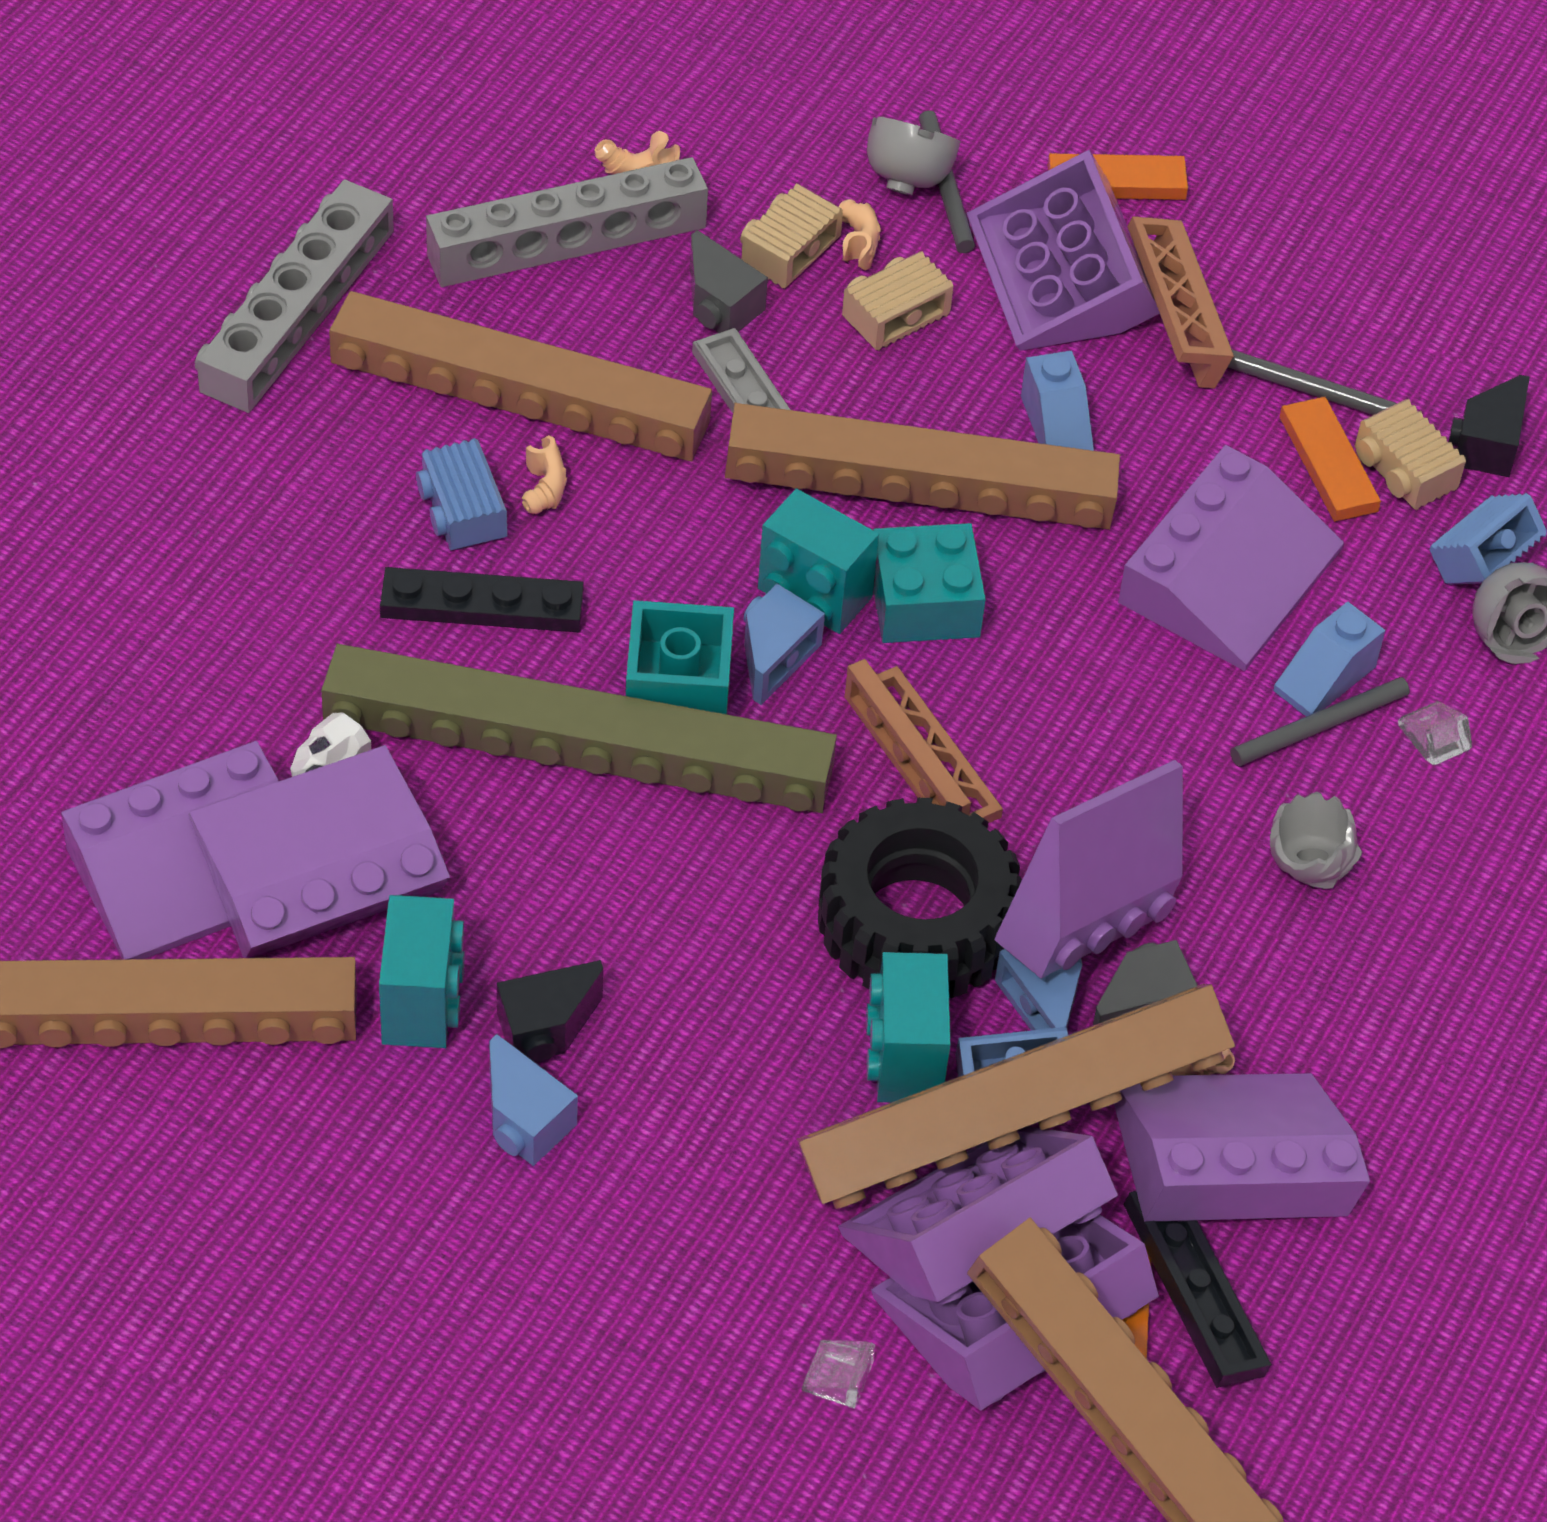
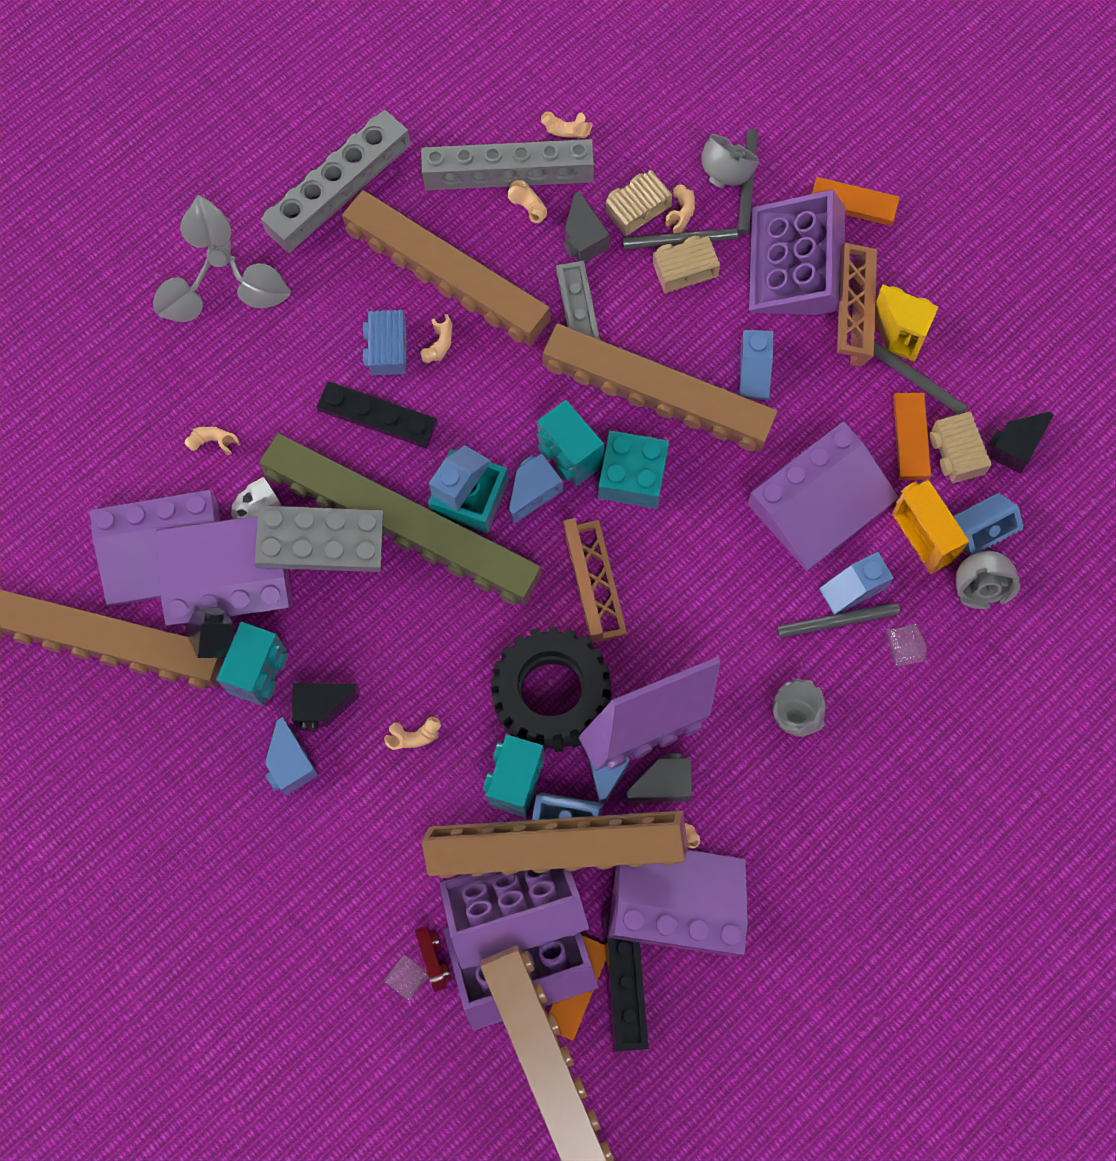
camera: 25 degrees right, 20 degrees up
(122, 369) = (203, 227): none -> light grey plant
(230, 678) = (205, 434): none -> light nougat piece
(338, 925) = (210, 632): none -> black slope
(468, 763) = (319, 538): none -> light grey plate
(608, 261) = (522, 194): none -> light nougat piece
(664, 632) = (458, 476): none -> medium blue slope
(732, 1022) = (403, 739): none -> light nougat piece
(839, 281) = (678, 238): none -> dark grey bar
(862, 1316) = (437, 971): none -> dark red plate
(1260, 302) = (903, 321): none -> yellow slope
(1419, 596) = (929, 526): none -> light orange window

